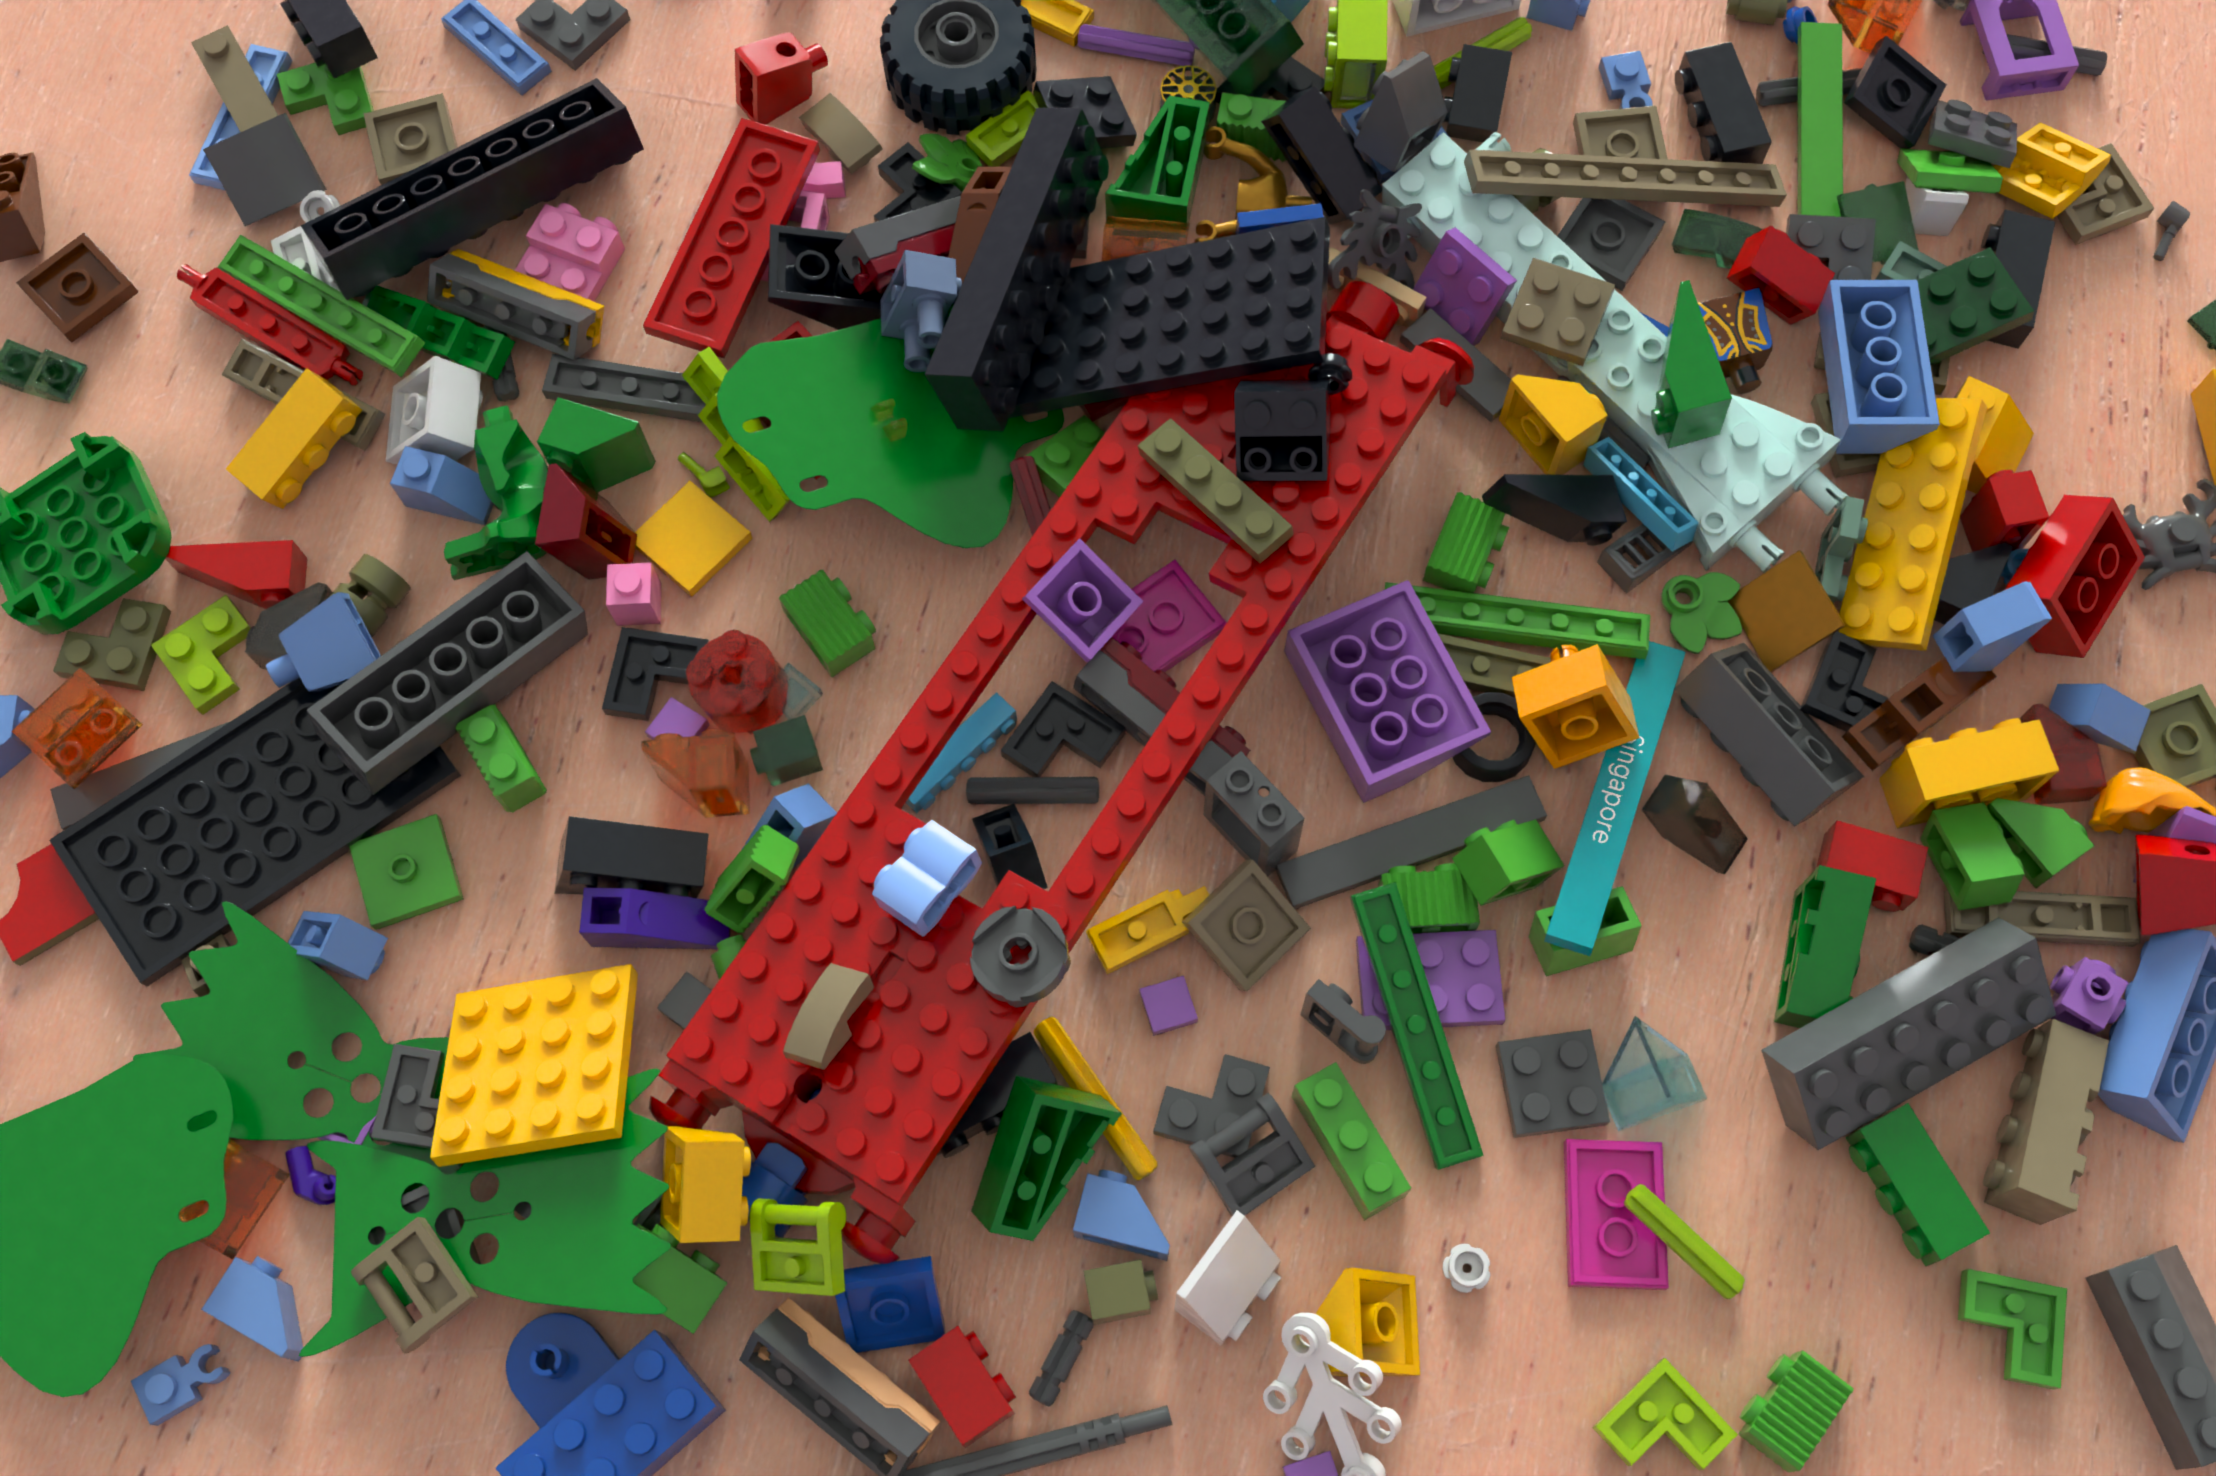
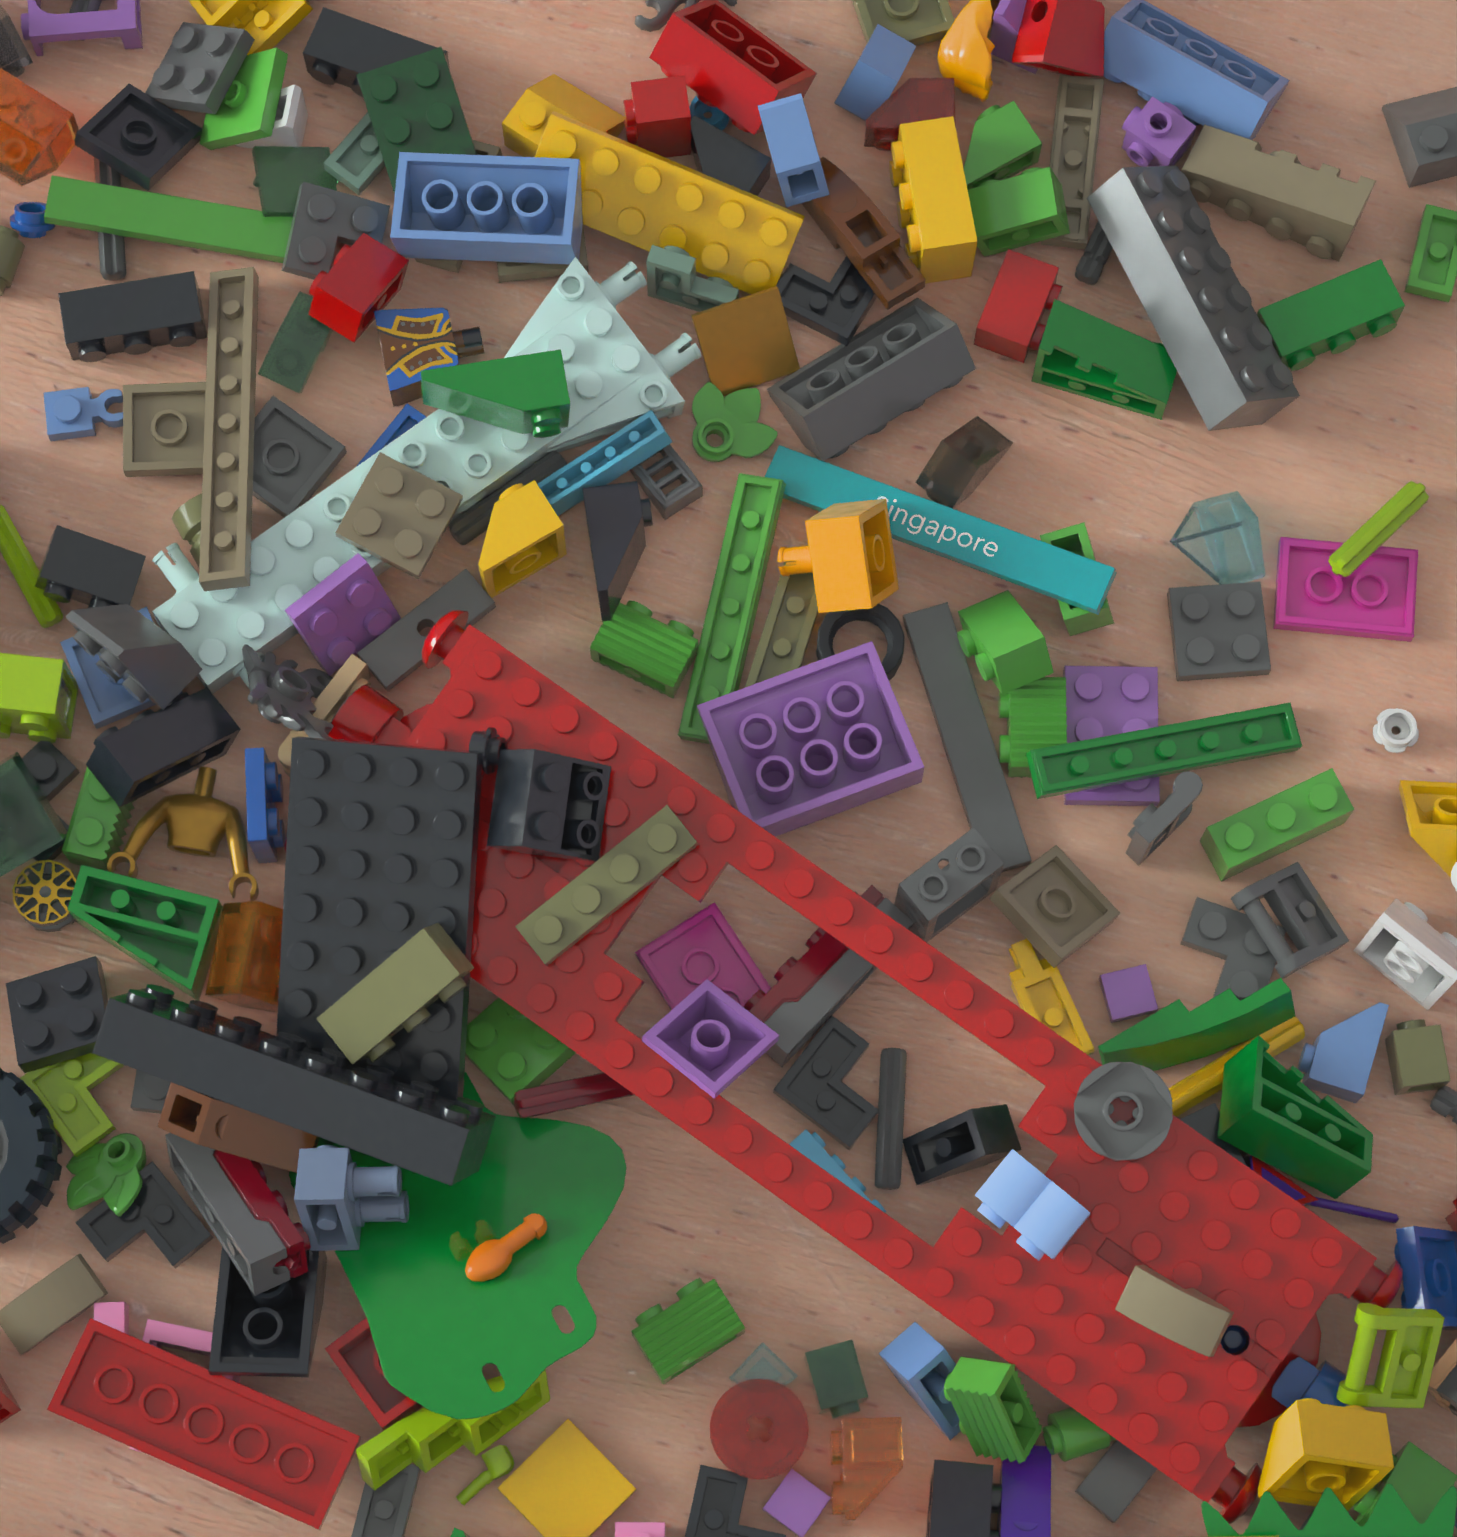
camera: 90 degrees left, 5 degrees up
(874, 433) = (495, 1255): none -> orange piece
(969, 1147) = (1306, 1198): none -> dark purple piece
(1101, 328) = (396, 995): none -> olive brick
(1125, 1052) = (1182, 1036): none -> green slope

